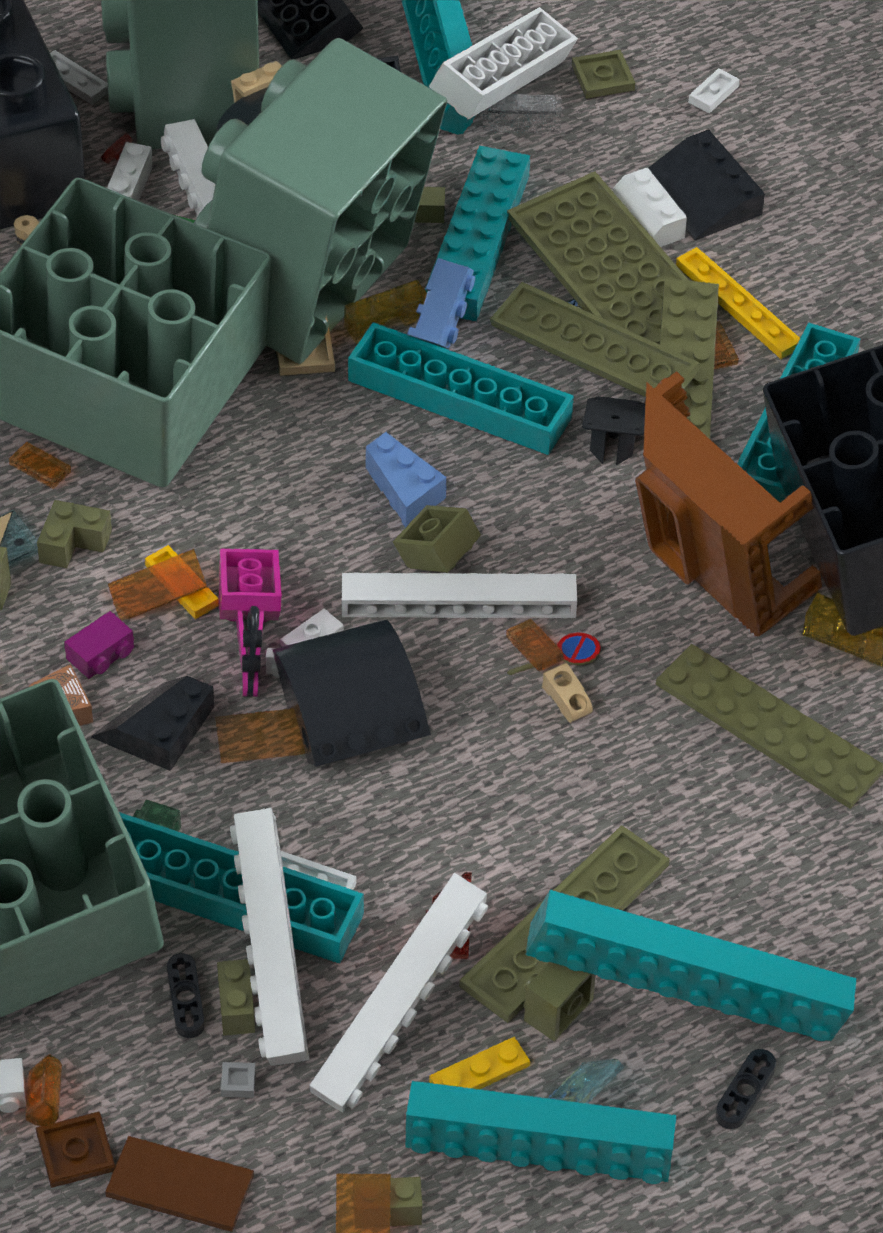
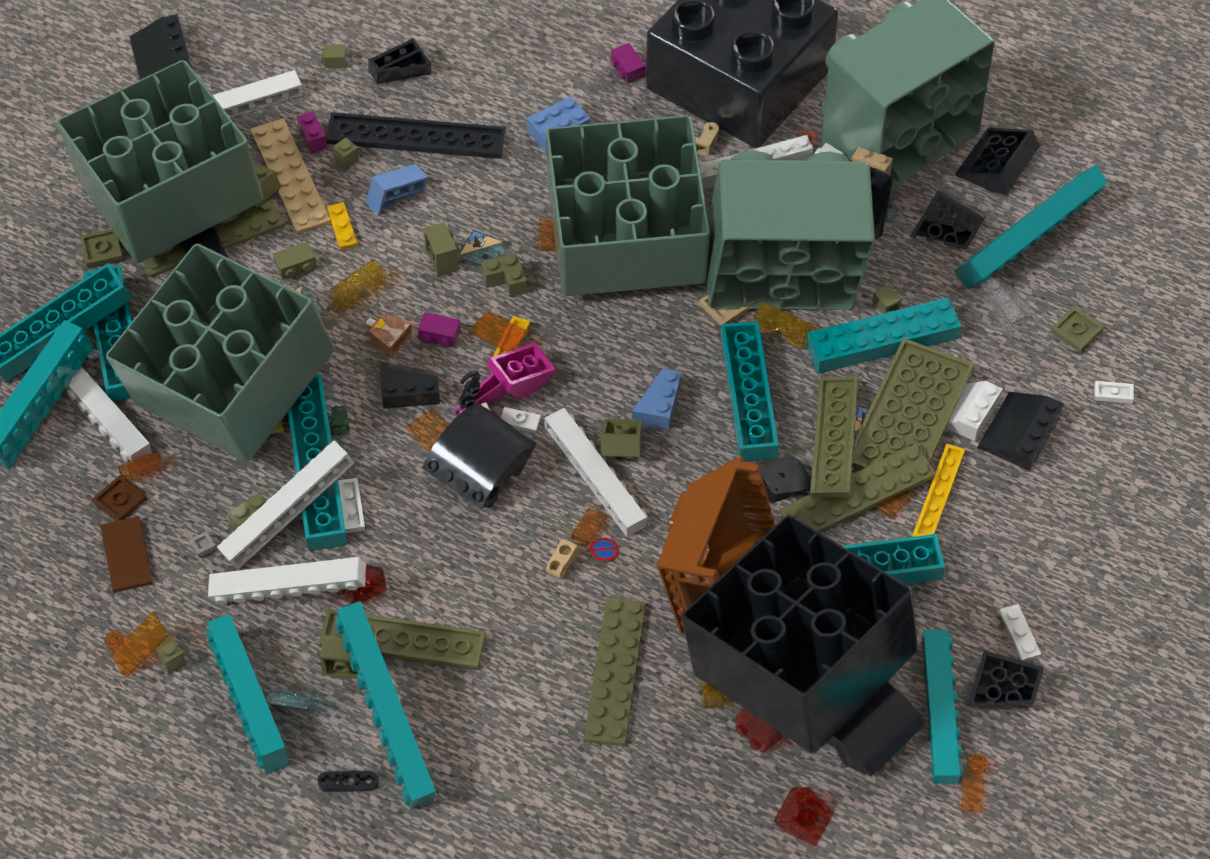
camera: 60 degrees right, 5 degrees up
(190, 984) = (241, 487): black beam -> none
(443, 303) = (796, 347): medium blue wedge -> none
(484, 1066) = (279, 649): yellow plate -> none
(503, 63) = (1015, 269): white brick -> none

